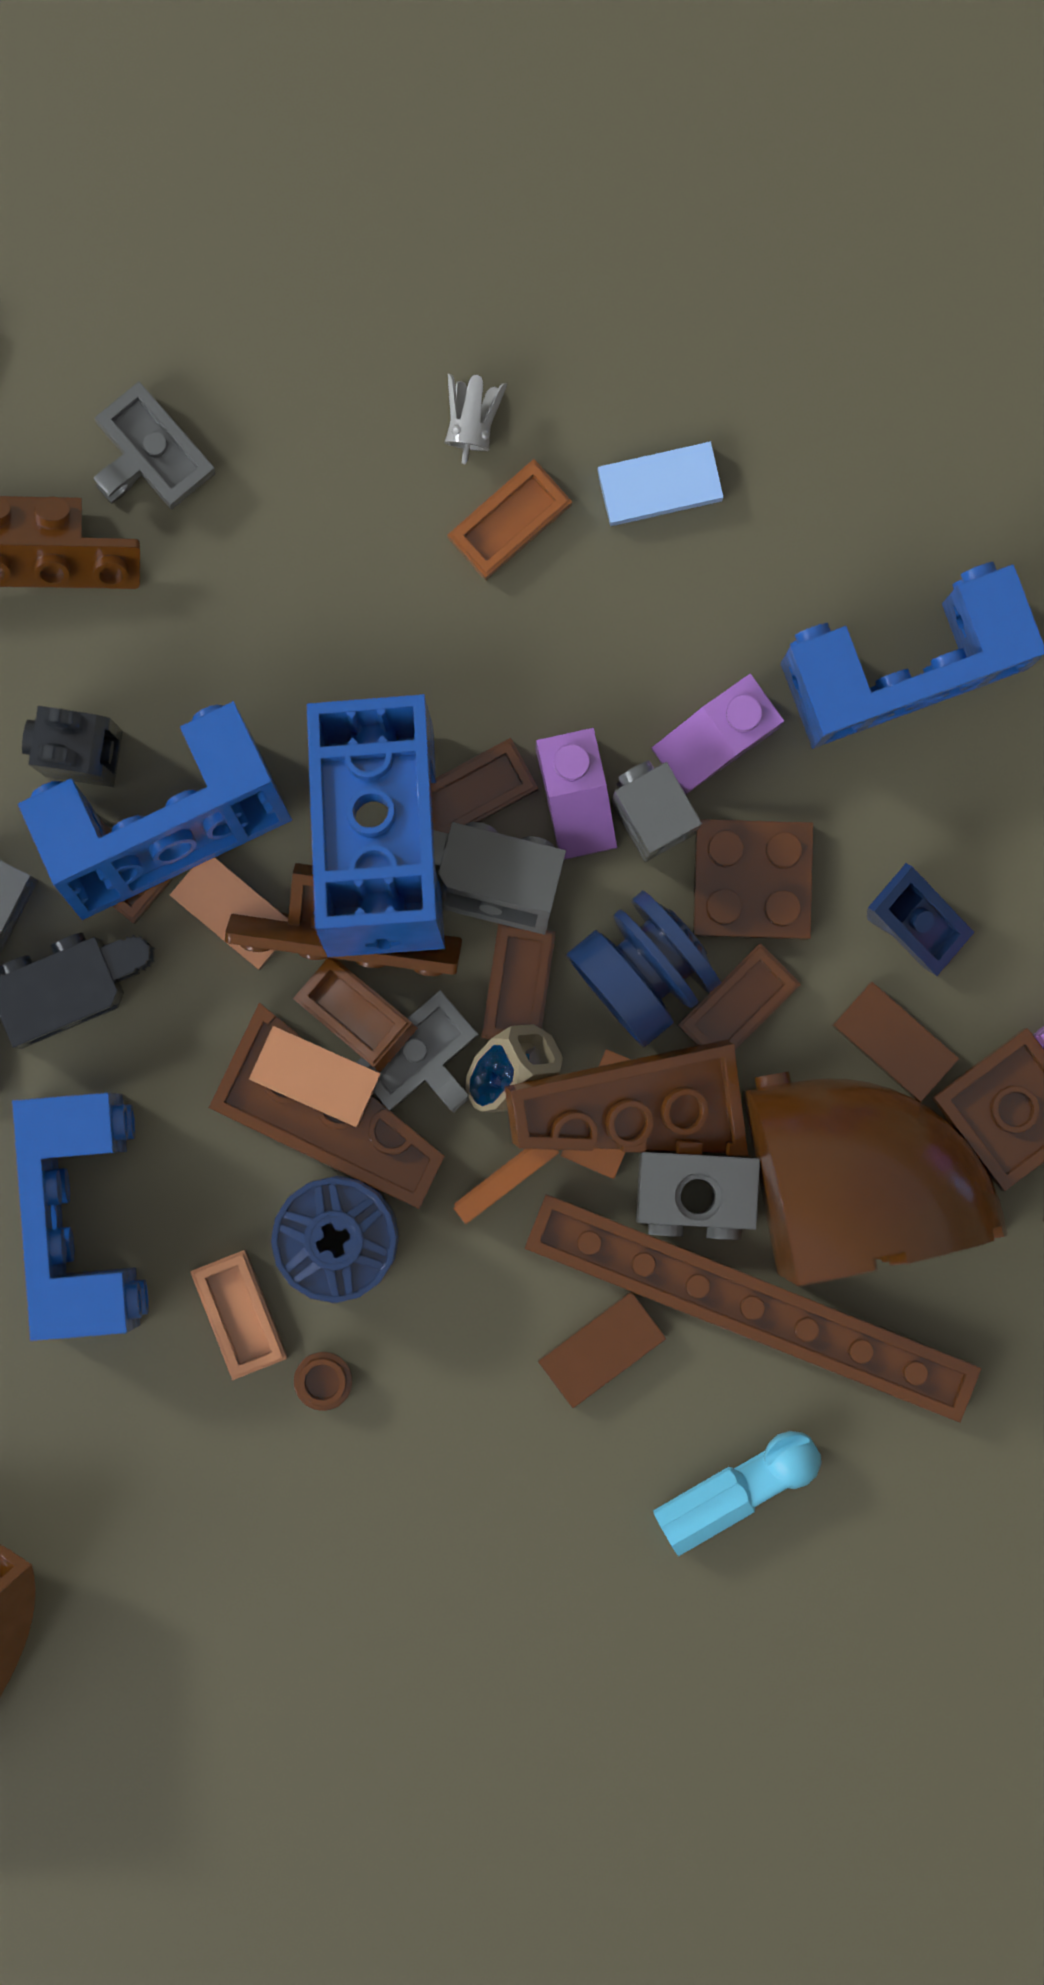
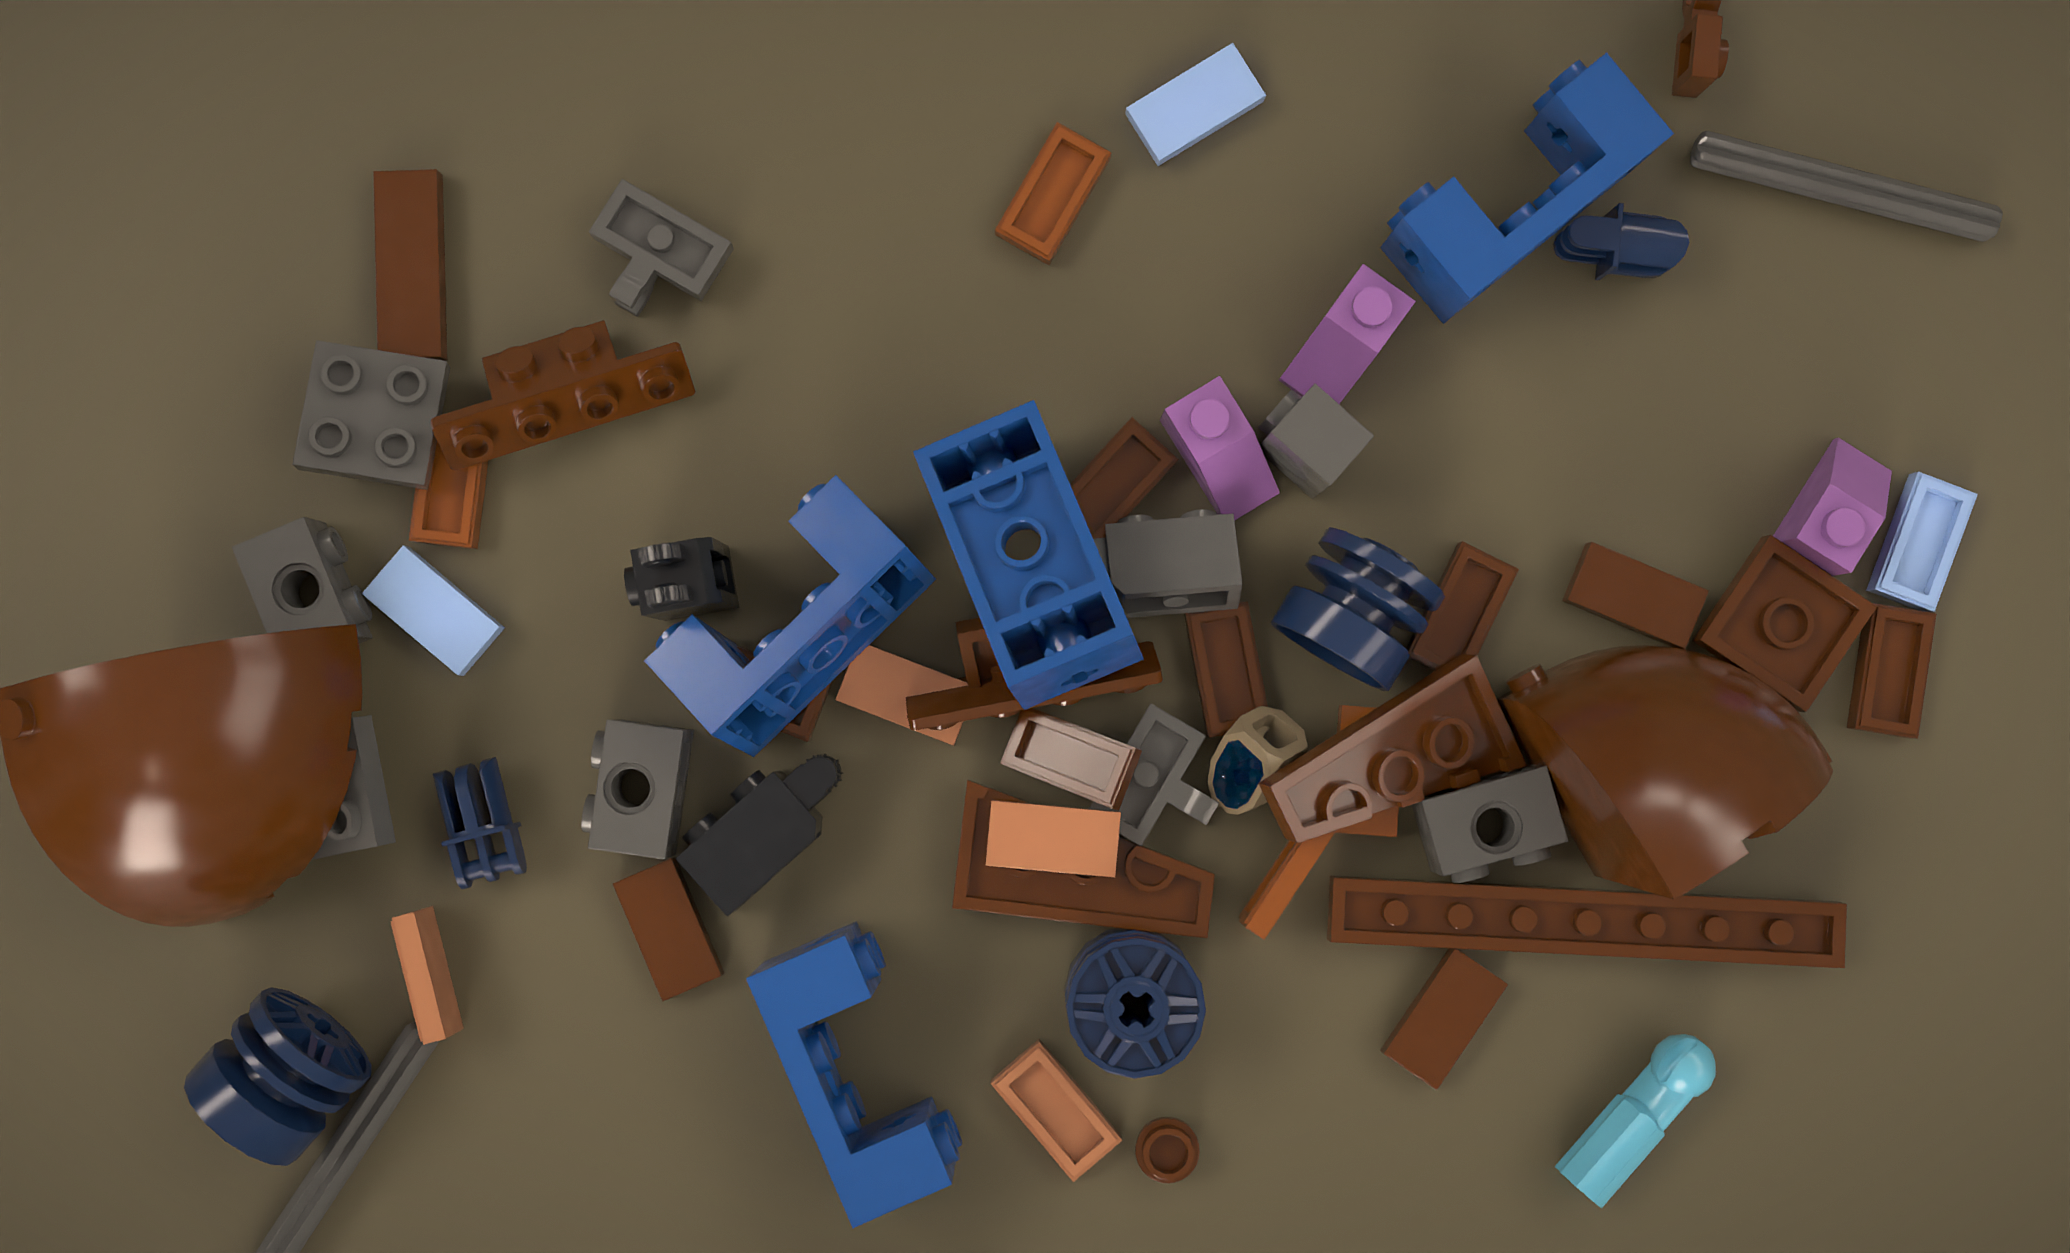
camera: 15 degrees left, 0 degrees up
(469, 419) = (979, 98): light grey piece -> none
(753, 879) = (1432, 478): reddish brown plate -> none
(919, 920) = (1620, 460): dark blue slope -> none
(989, 732) = (1624, 243): none -> dark blue arm

